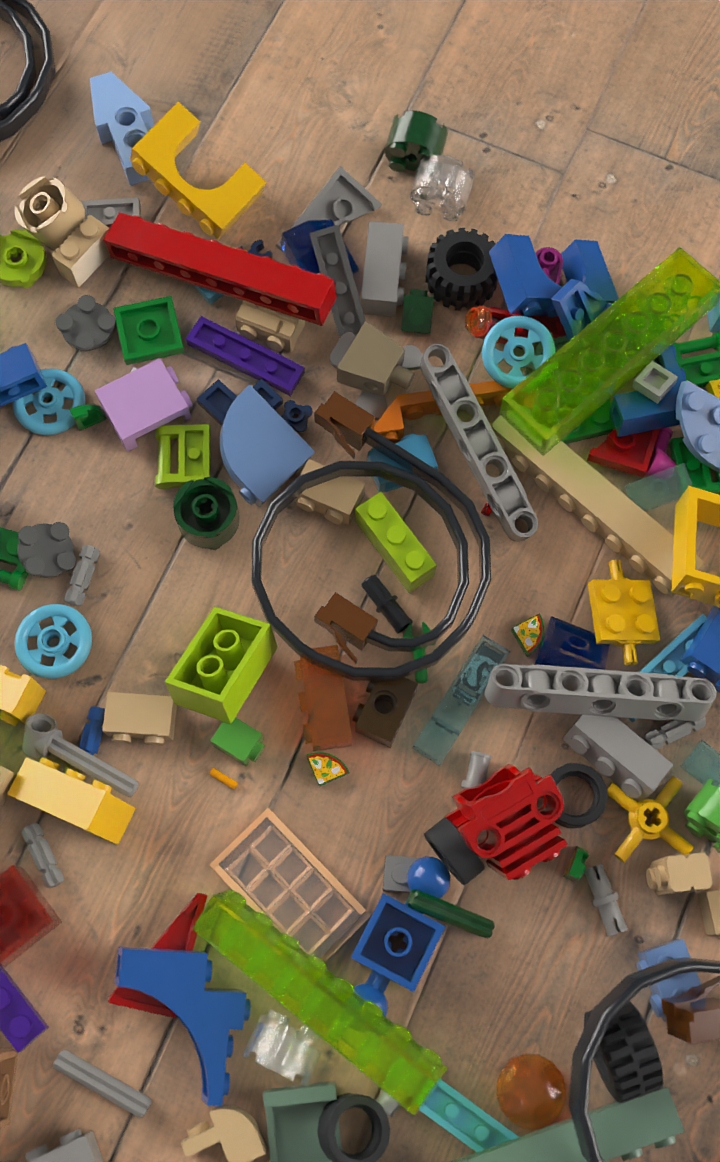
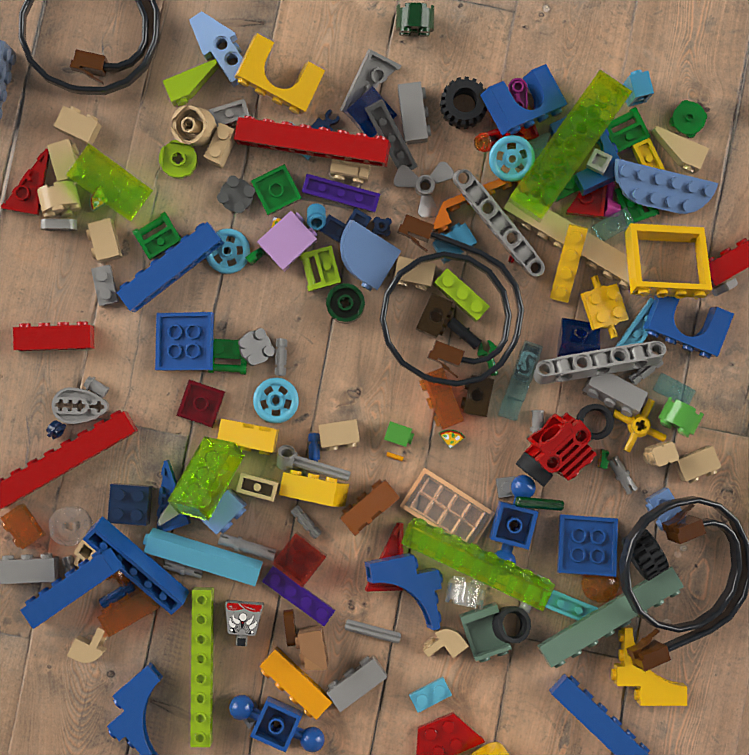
camera: 15 degrees left, 15 degrees up
(69, 158) = (186, 84): none -> lime slope
(154, 852) = (369, 506): none -> dark orange wedge
(191, 382) = (316, 216): none -> dark azure brick
(222, 664) = (380, 394): lime brick -> none
(347, 547) = (435, 304): none -> dark brown brick
(374, 363) = (425, 186): dark tan torso -> none
(417, 311) = (441, 137): dark green bracket -> none
(442, 187) = (439, 47): clear brick -> none
(521, 1013) = (587, 545): none -> blue plate
(529, 634) = (552, 332): tile -> none
(577, 306) = (545, 122): wing -> none
(577, 528) = (568, 263): none -> yellow plate

